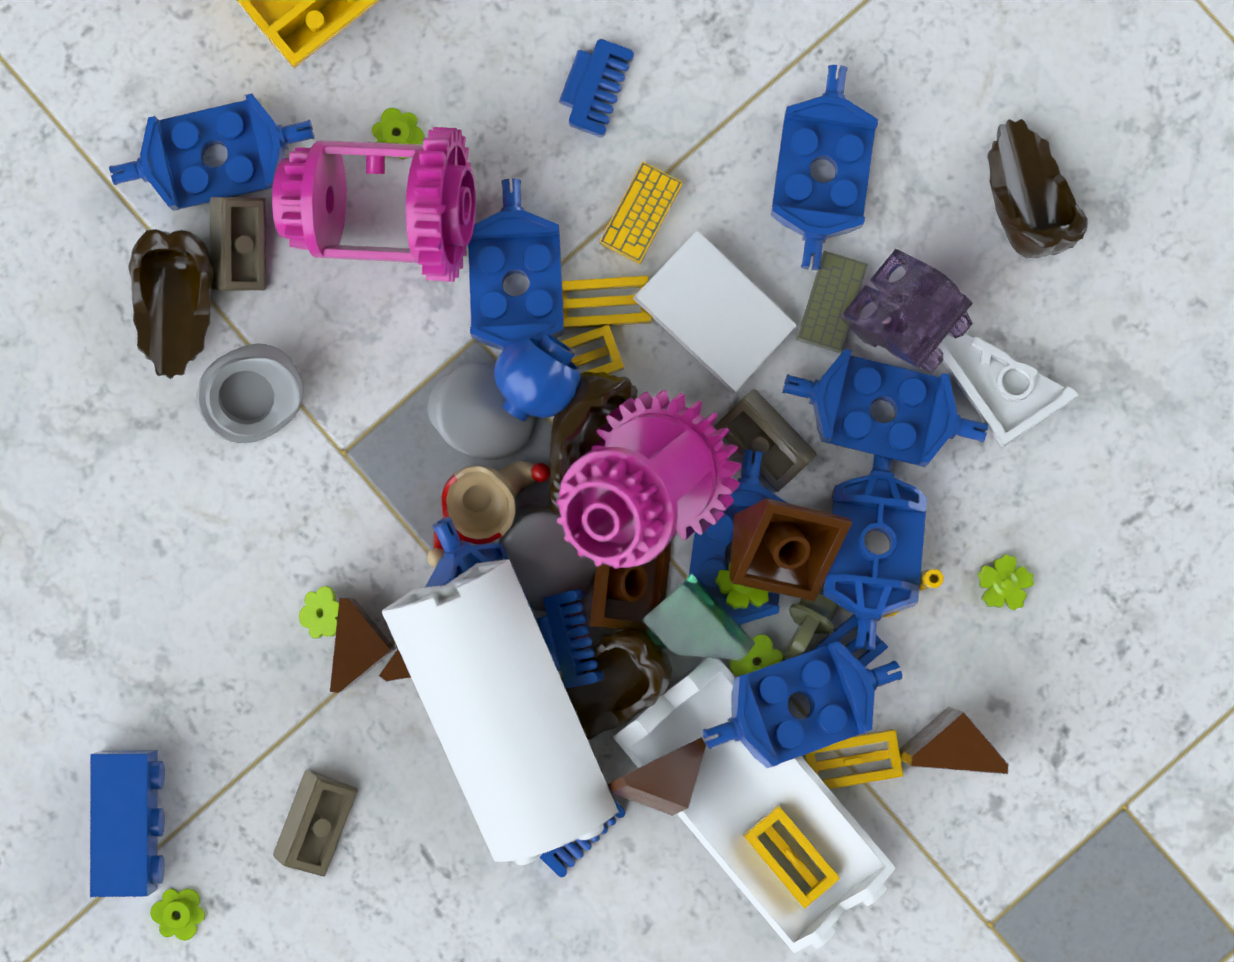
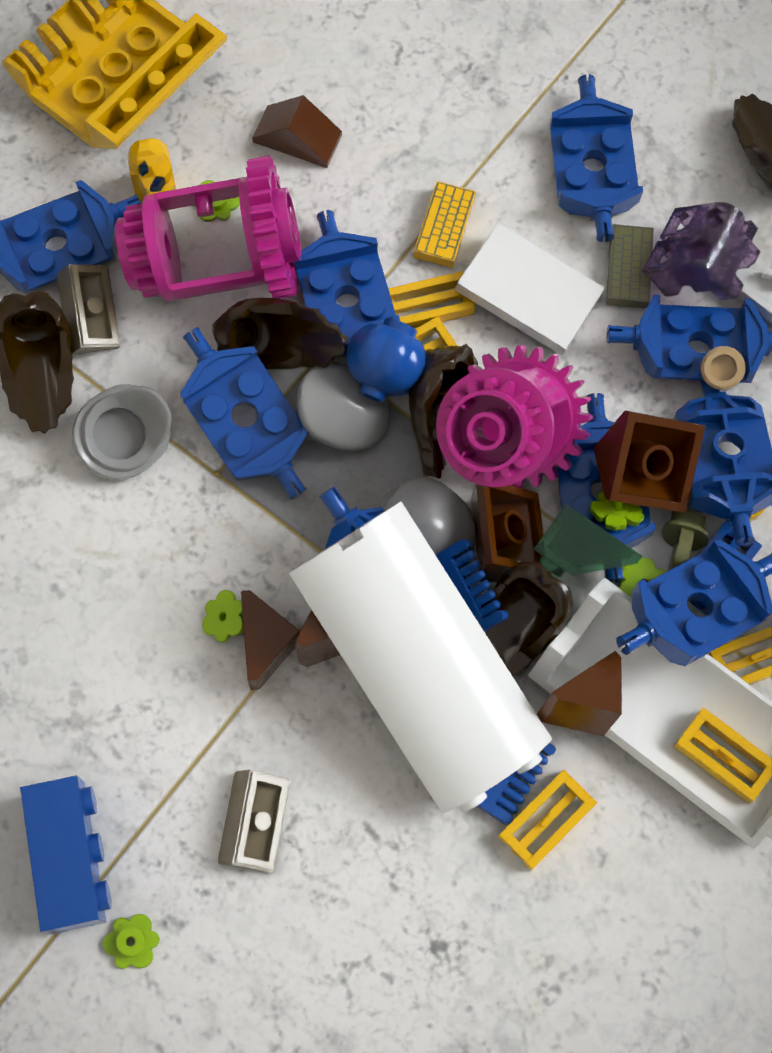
camera: 15 degrees left, 15 degrees down
(331, 97) = (150, 167): none -> yellow rock
(386, 439) = (235, 379): none -> blue plate
(425, 319) = (281, 332): none -> dark brown hair
(484, 501) = (360, 478): tan piece -> none
(502, 69) = (299, 131): none -> reddish brown slope
(567, 902) = (519, 847): none -> yellow tile
(584, 81) = (370, 132): blue piece -> none
(761, 428) = (618, 392): dark tan slope -> none
(894, 450) = (722, 368): none -> tan tile

